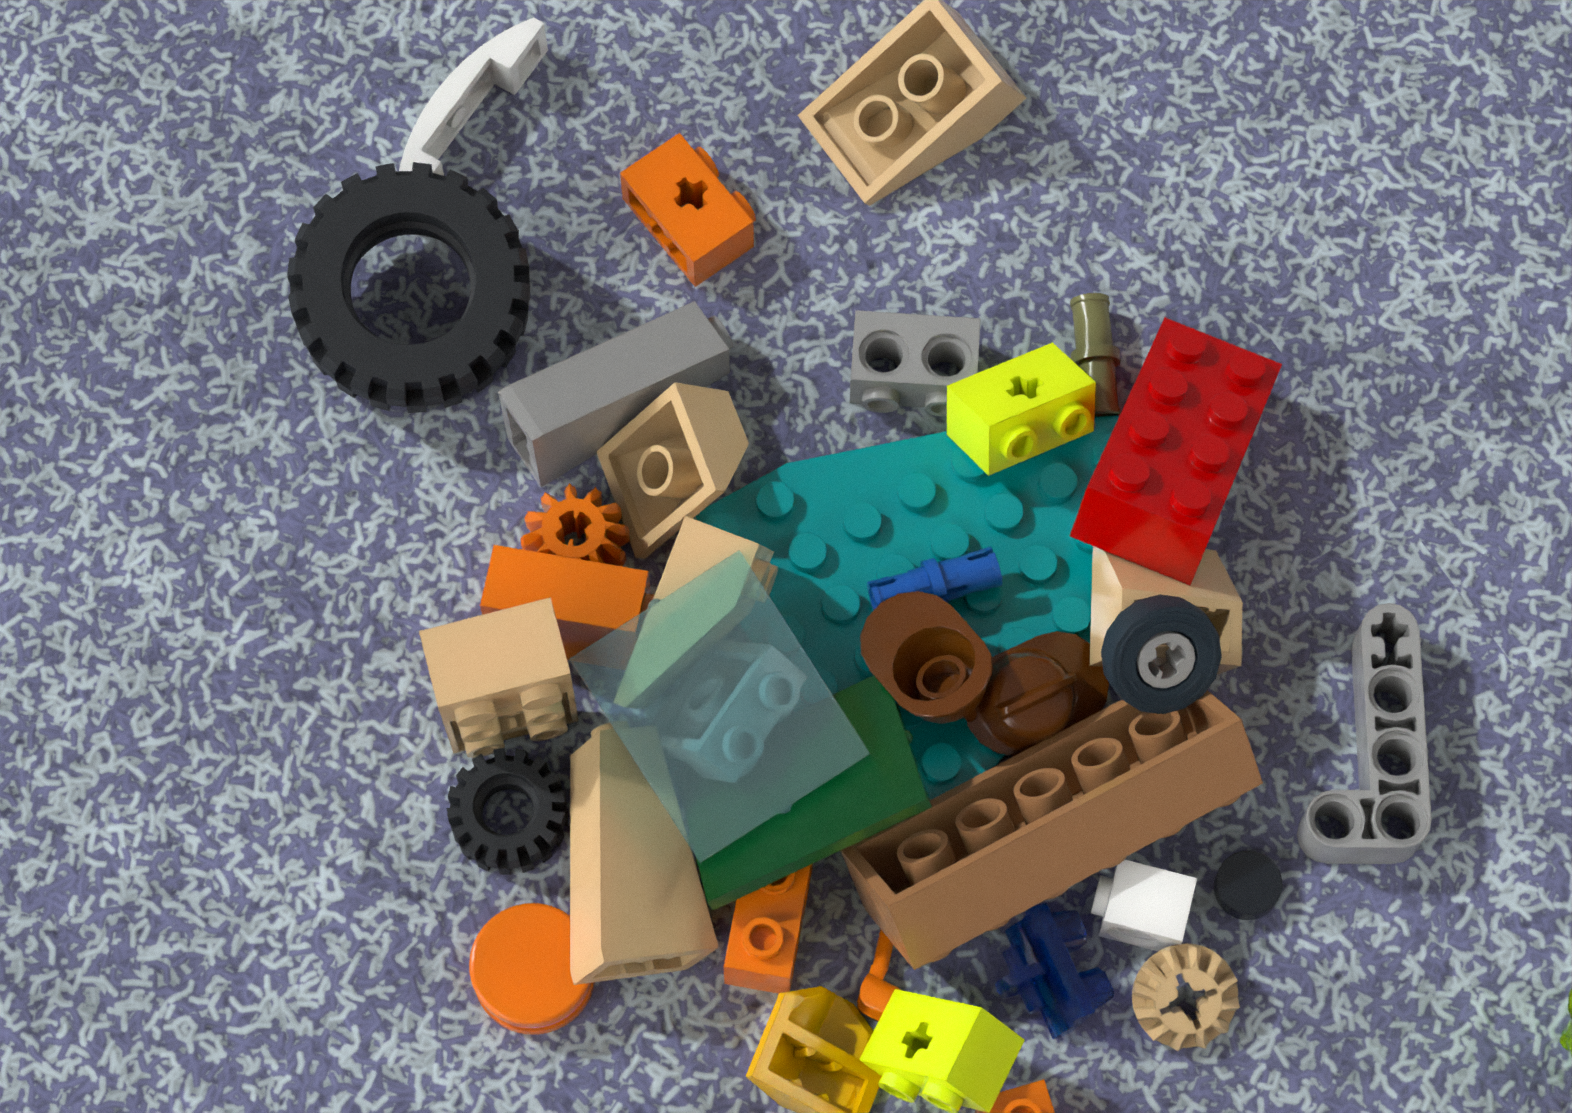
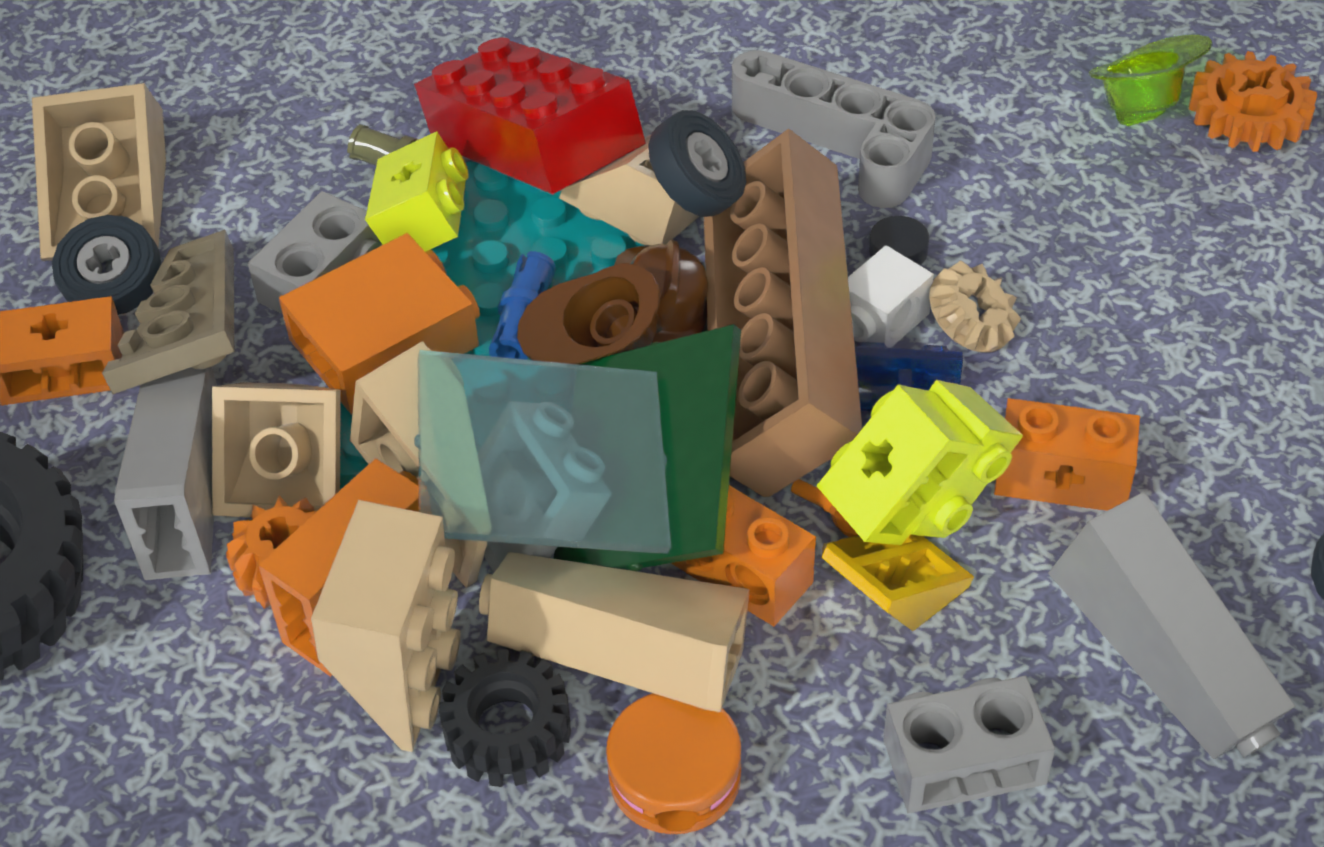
camera: 60 degrees left, 20 degrees down
(769, 296) = (185, 319): none -> dark tan wing
(805, 154) = (102, 238): none -> black bush
(844, 471) = (377, 311): none -> orange brick
(890, 1014) = (898, 465): none -> neon yellow brick

